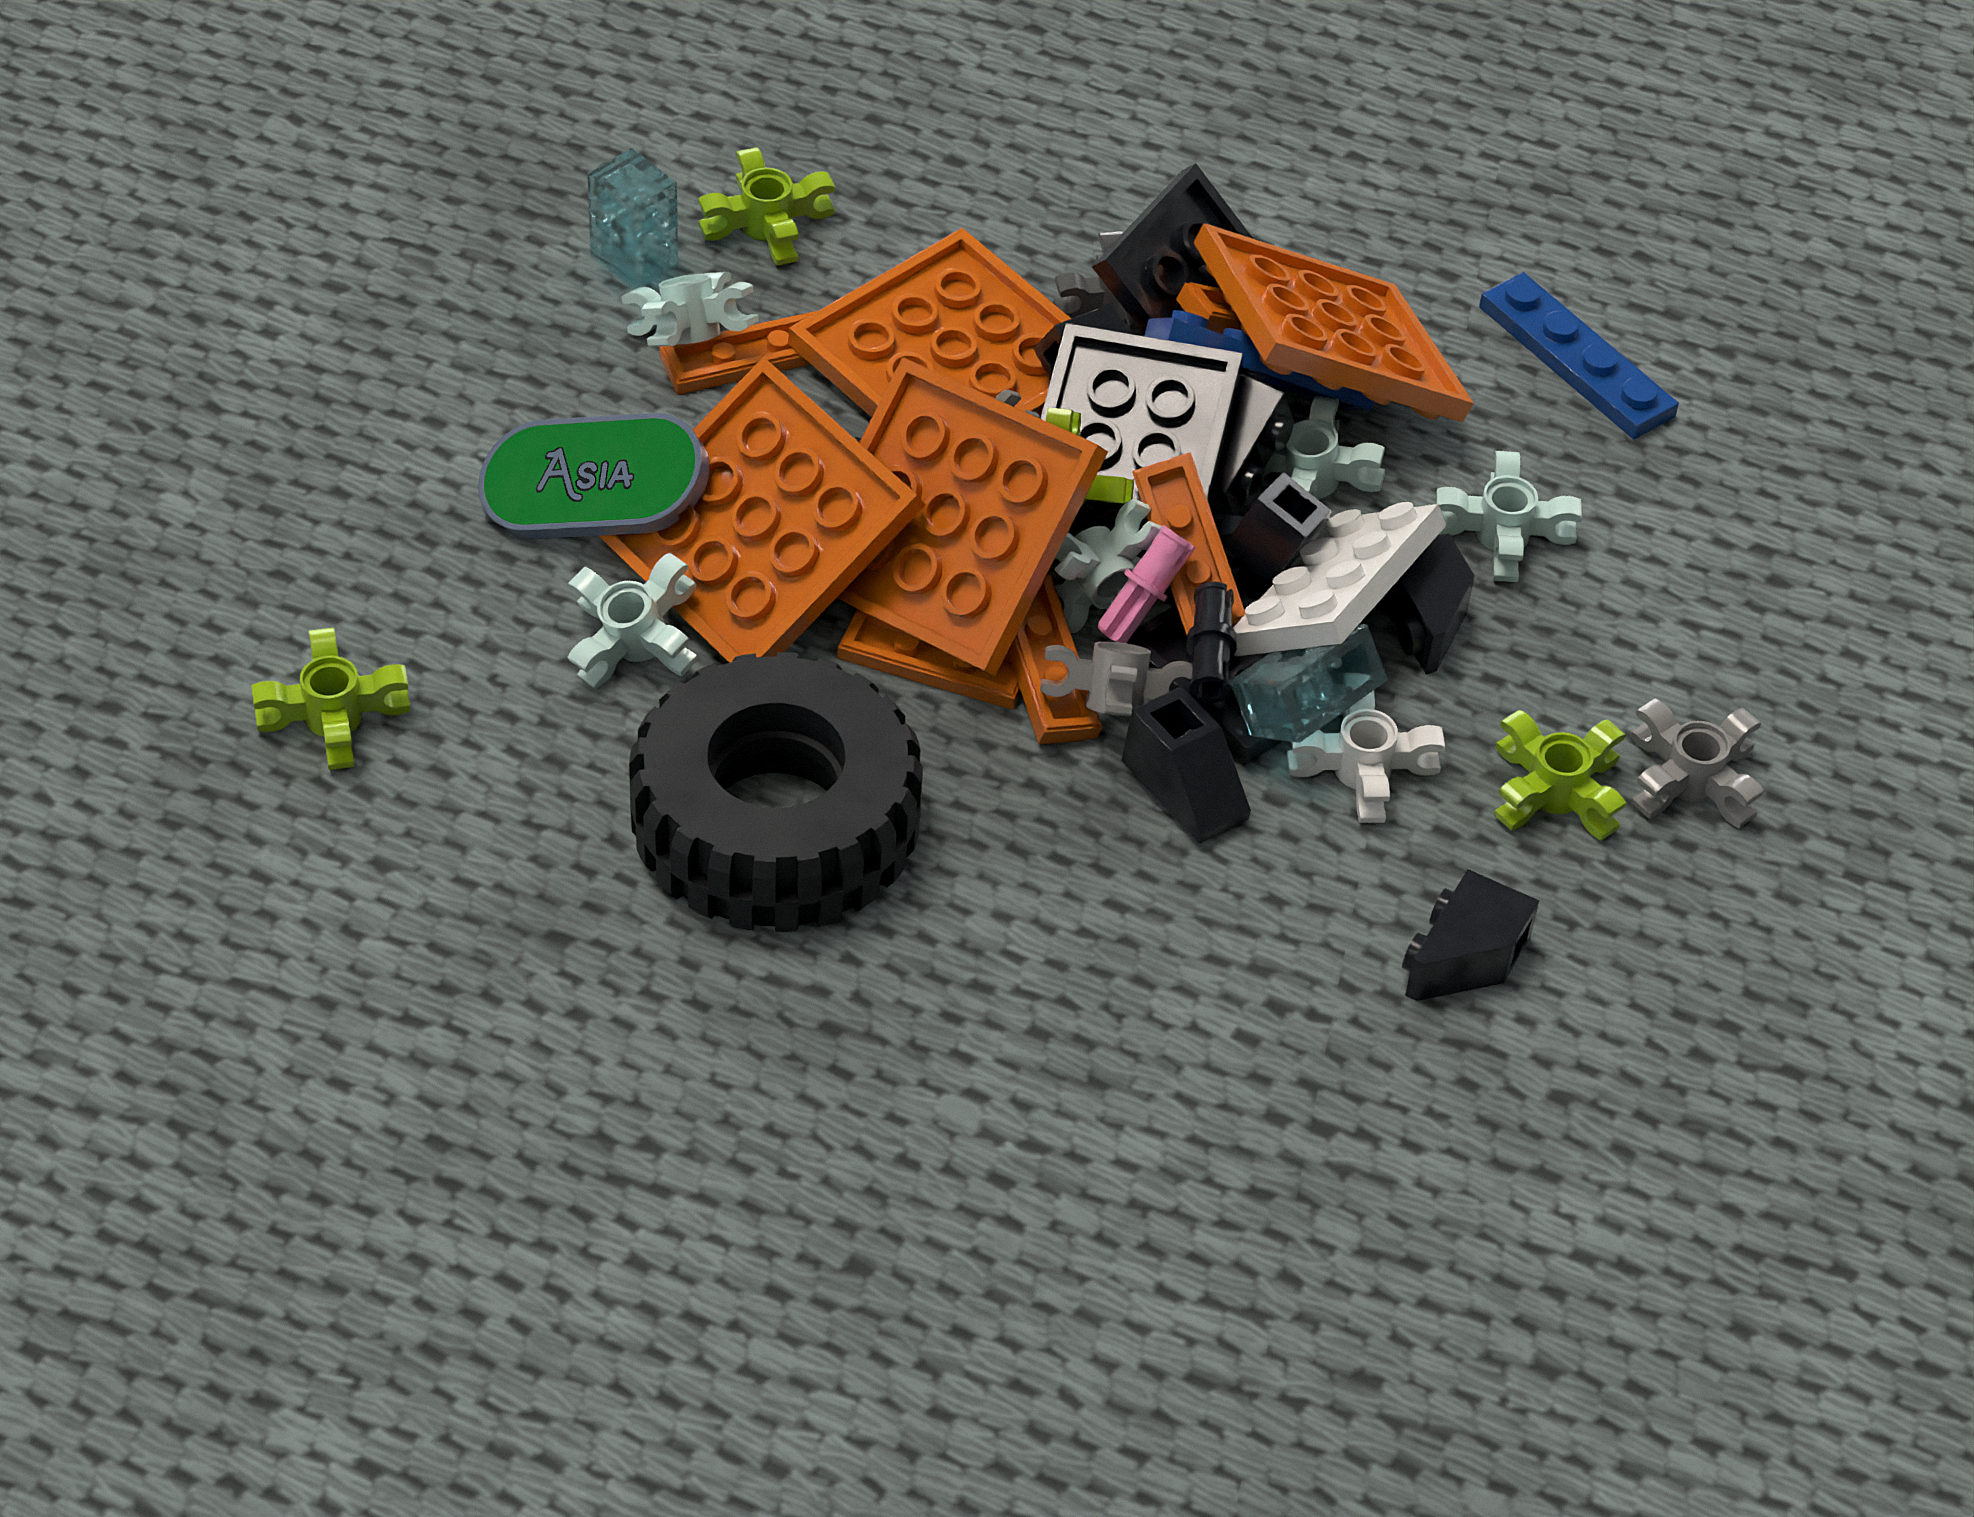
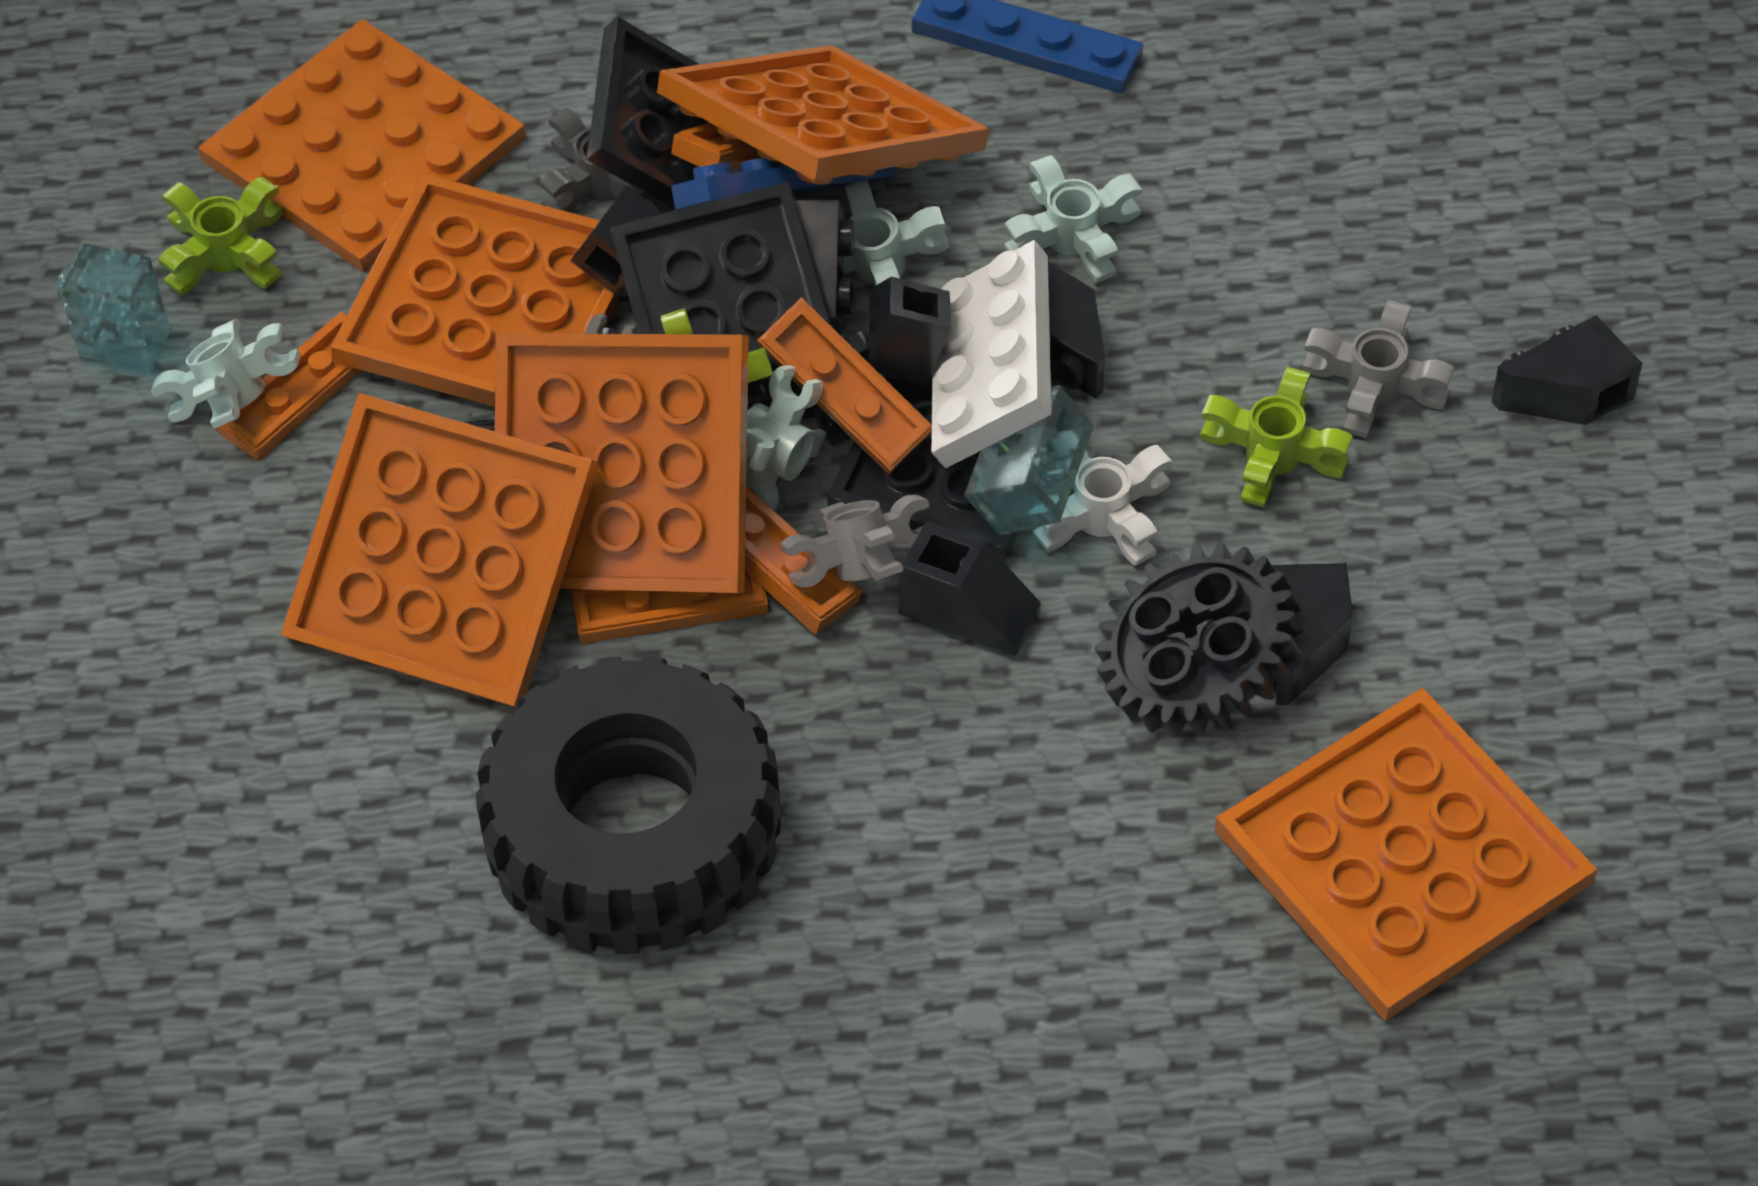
camera: 25 degrees left, 5 degrees up
(331, 698) = (145, 903): lime pin -> none
(593, 475) = (252, 582): green tile -> none
(633, 621) = (356, 699): light aqua pin -> none
(937, 170) = (356, 135): none -> orange plate
(1145, 585) = (830, 442): bright pink axle -> none
(1211, 642) = (927, 466): black pin -> none
(1362, 900) = (1199, 640): none -> black gear
(1429, 1167) = (1404, 852): none -> orange plate
(1873, 851) = (1570, 376): none -> black slope

